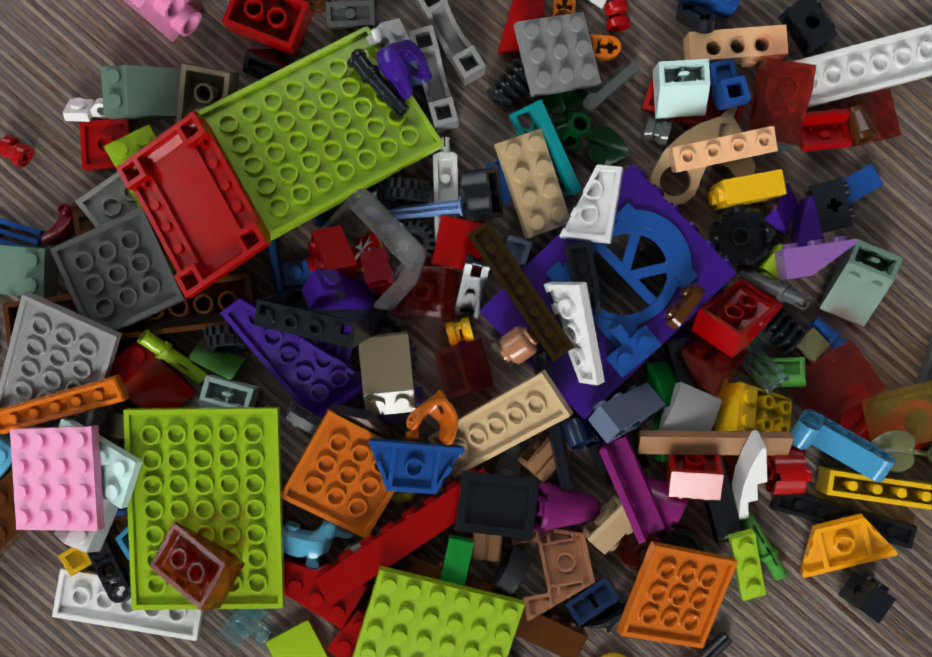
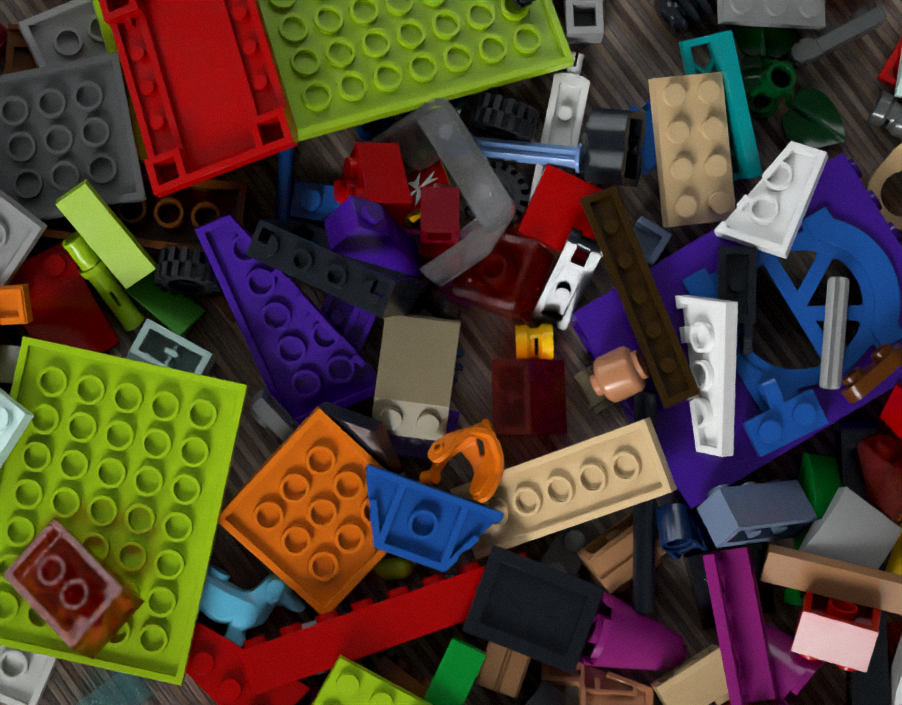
camera: 15 degrees right, 5 degrees down
(163, 328) = (105, 234): none -> lime tile
(652, 284) = (834, 332): none -> light grey axle

